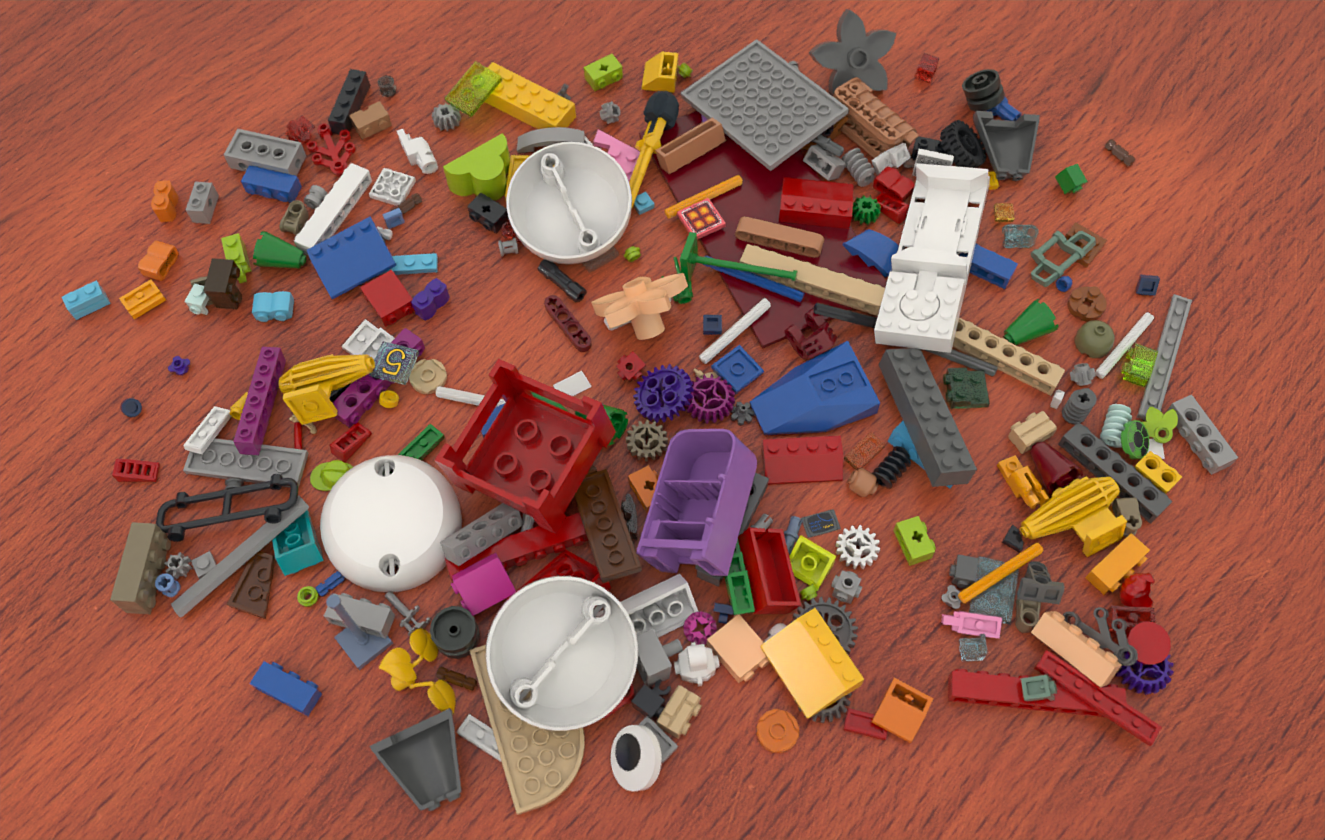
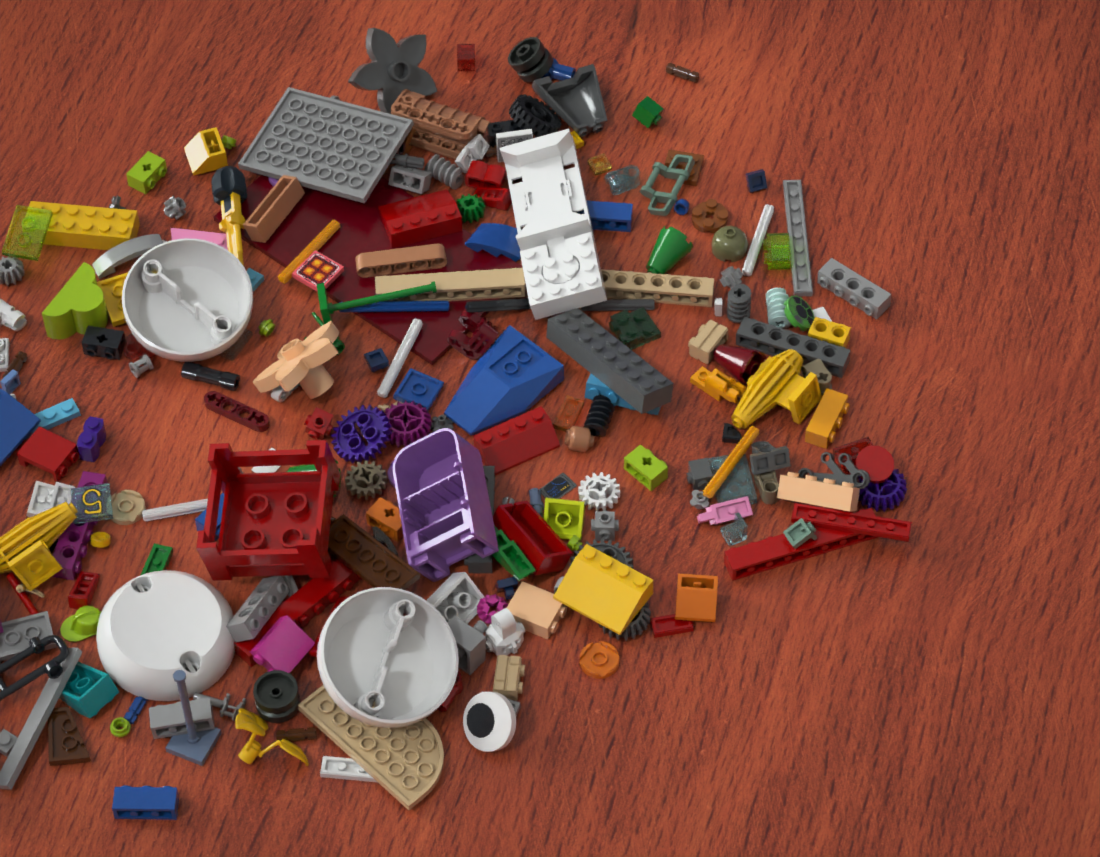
camera: 25 degrees left, 10 degrees down
(424, 760) = (308, 797): dark grey cone -> none
(650, 701) = (478, 679): black brick -> none
(1136, 590) = (849, 429): red hair -> none
(1158, 421) = (812, 292): lime plate -> none

